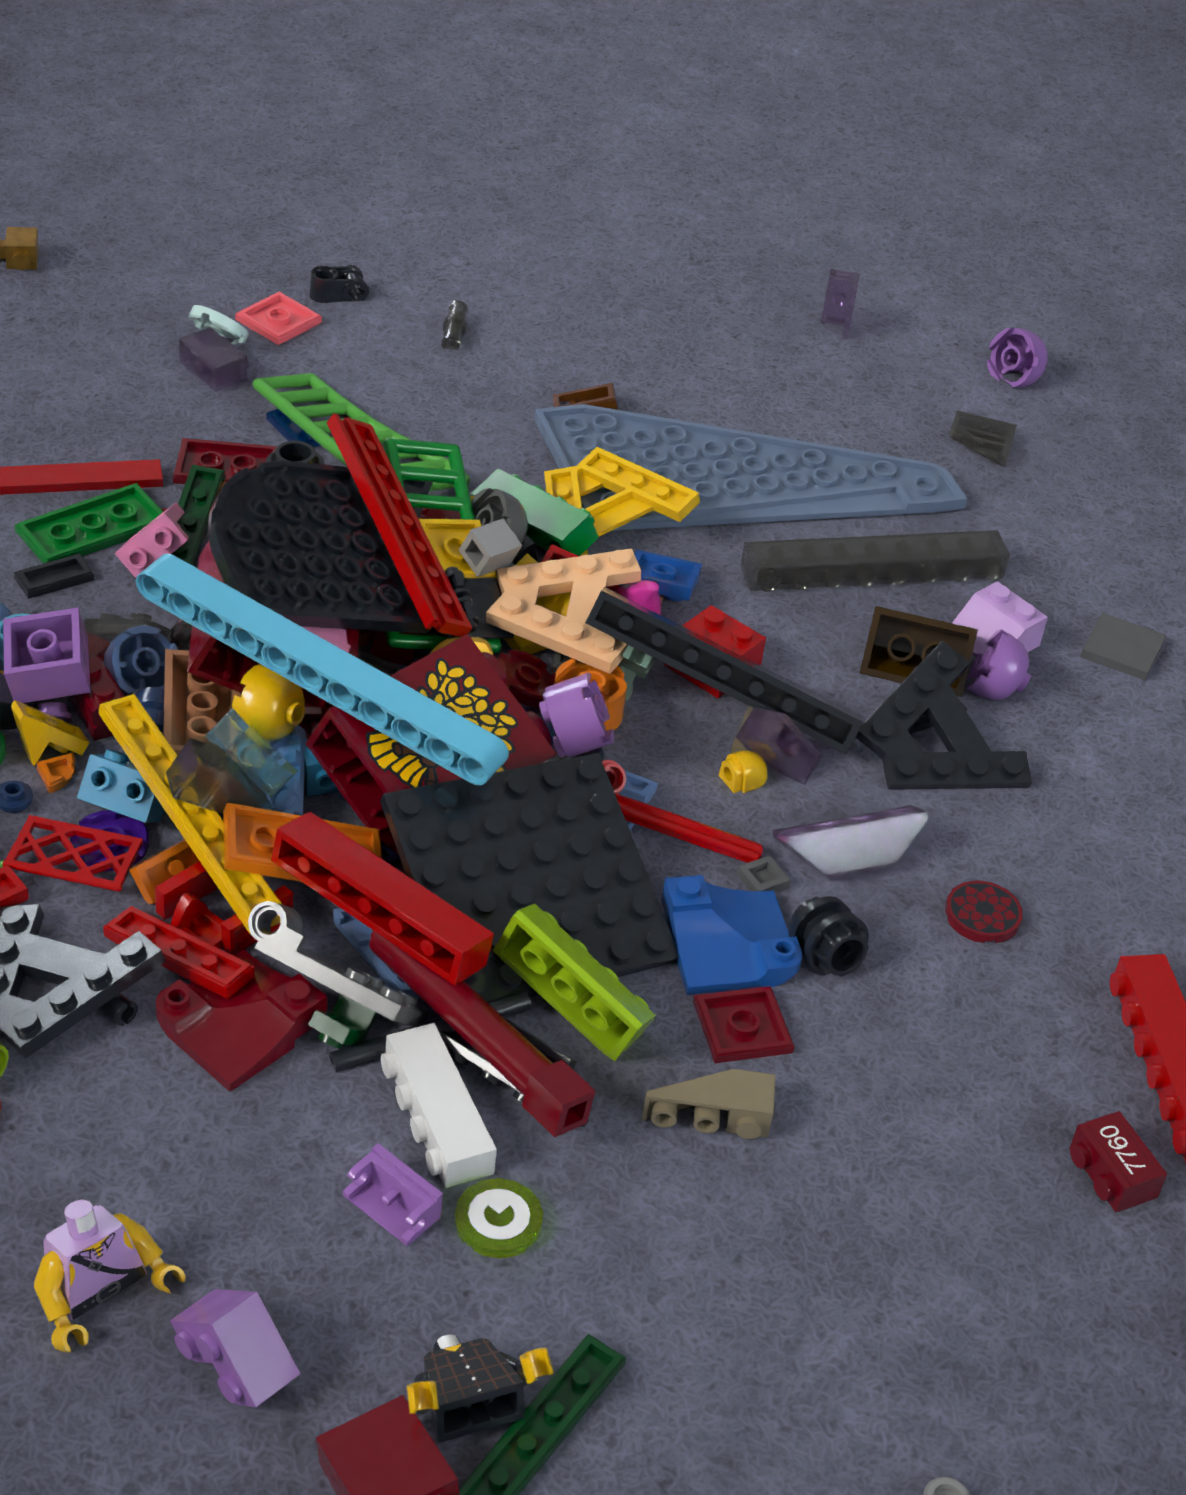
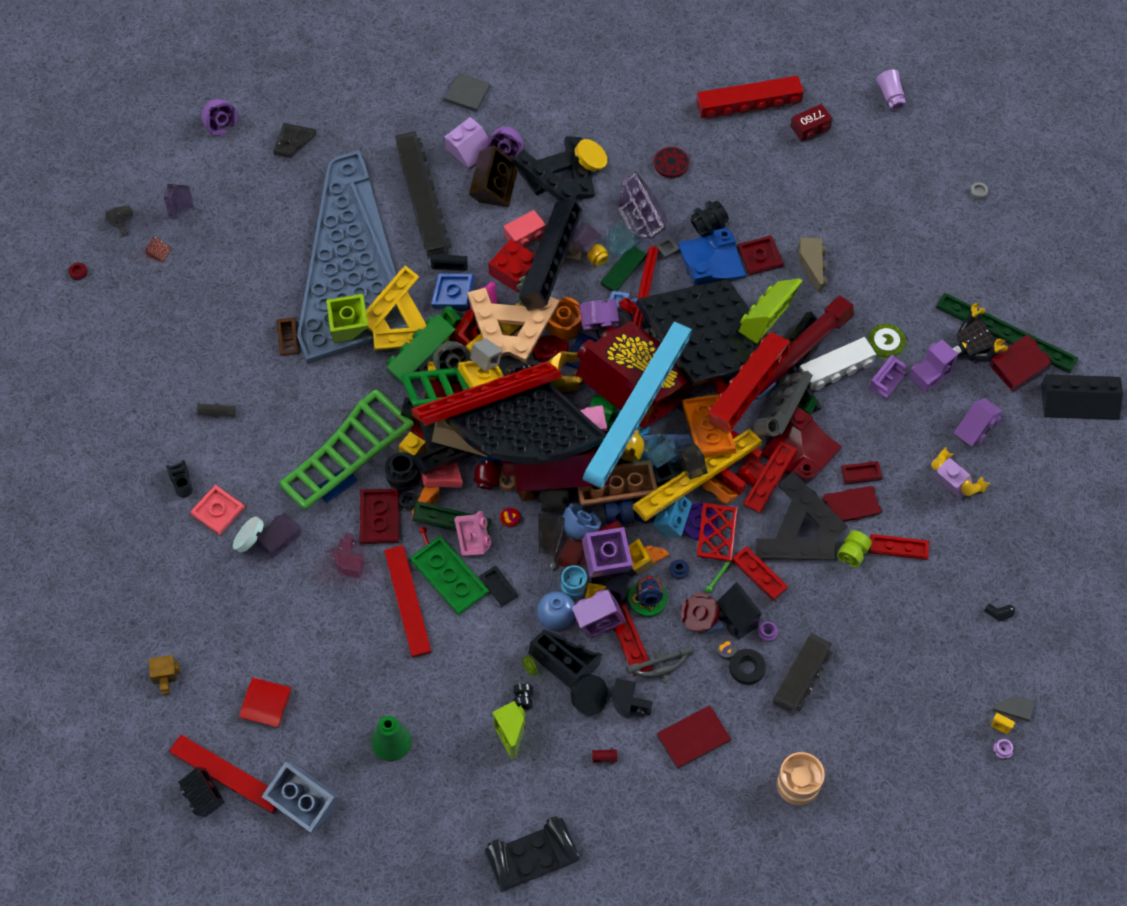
camera: 90 degrees left, 20 degrees up
(83, 1082) = (853, 503): none -> dark red piece
(153, 414) = (346, 561): none -> clear pink brick
(159, 1114) = (861, 472): none -> dark red tile
(402, 1279) = (935, 366): none -> medium lavender brick
(597, 425) = (347, 317): none -> lime slope
(710, 805) = (623, 269): none -> dark green tile
(720, 231) = (78, 271): none -> dark red tile
(725, 577) = (449, 262): none -> black tile
(758, 295) = (157, 249): none -> clear red slope
(774, 794) = (621, 239): none -> clear light blue brick
(800, 665) = (525, 229): none -> coral brick
(818, 263) = (119, 215): none -> clear smoke piece
(981, 780) = (591, 155): none -> yellow tile

